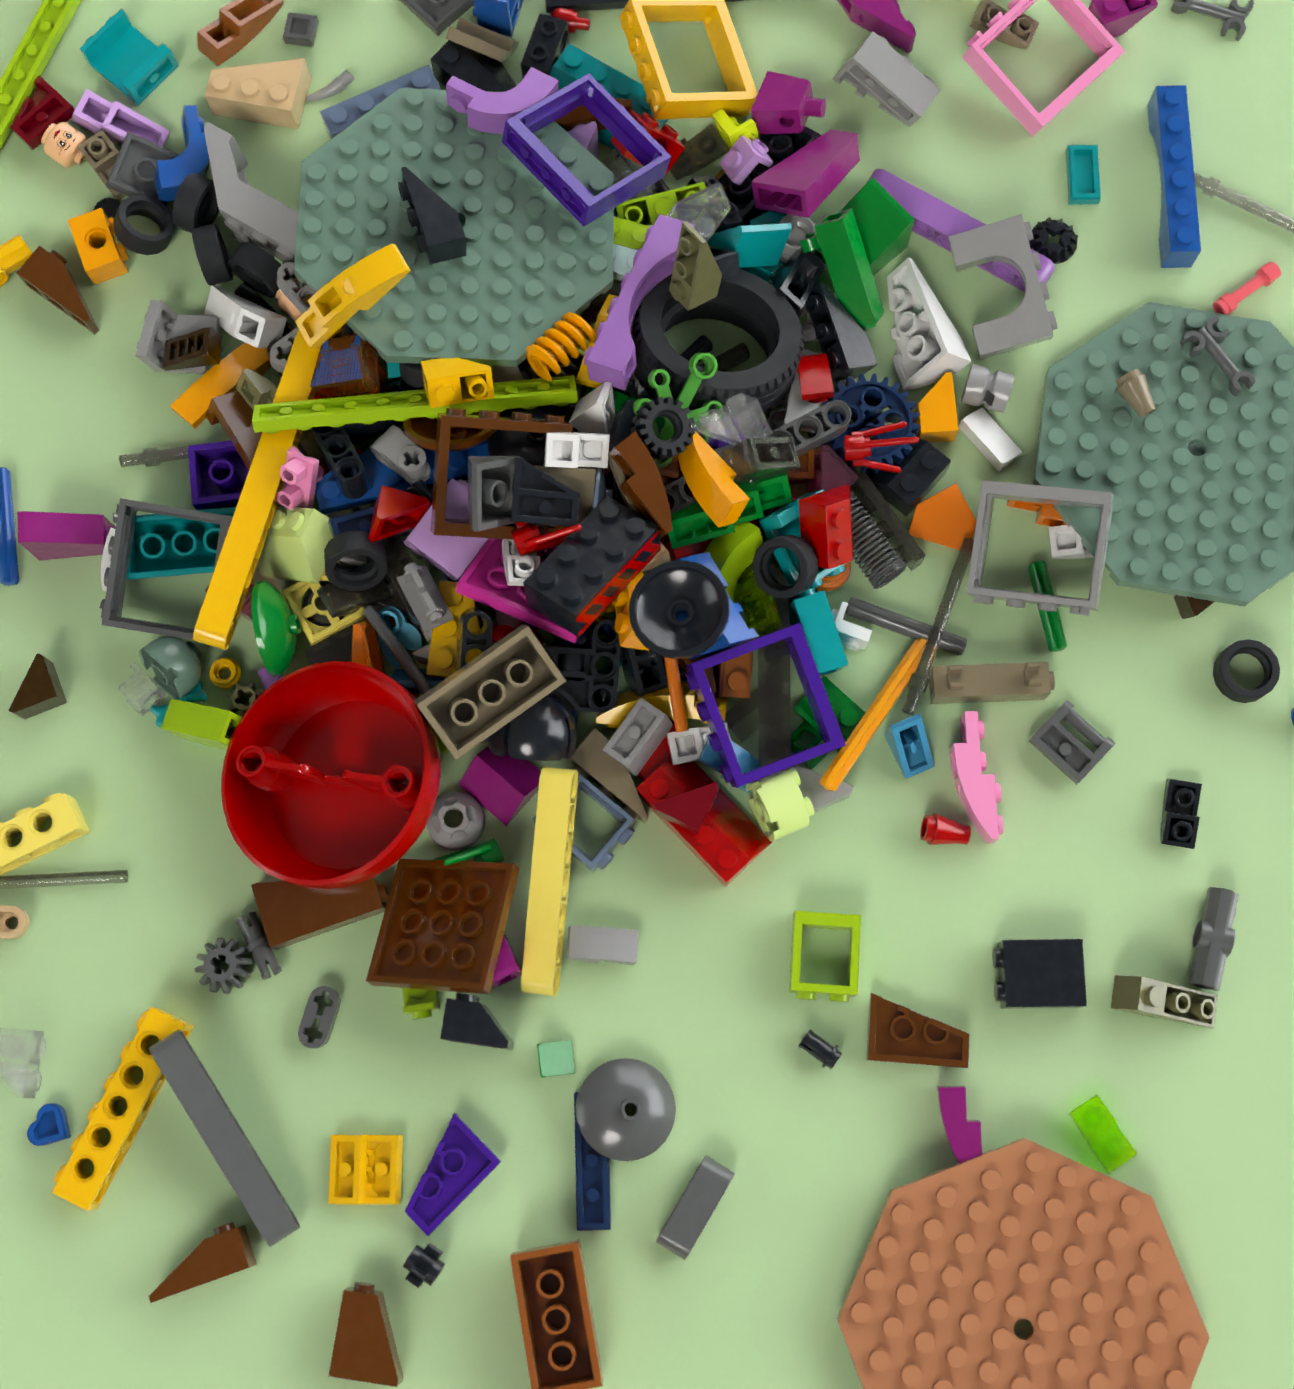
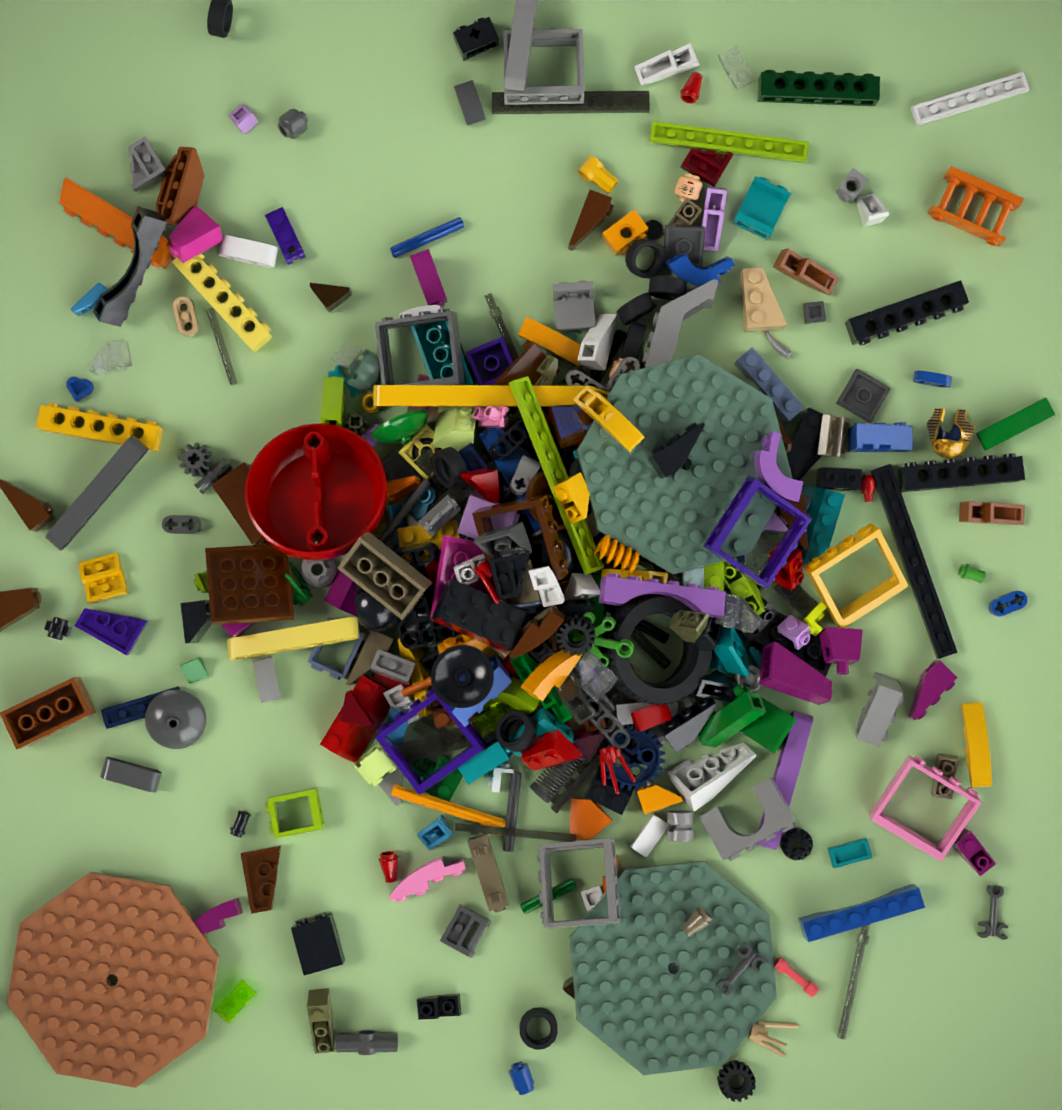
camera: 65 degrees right, 10 degrees up
(207, 356) = (570, 330): dark brown slope -> none

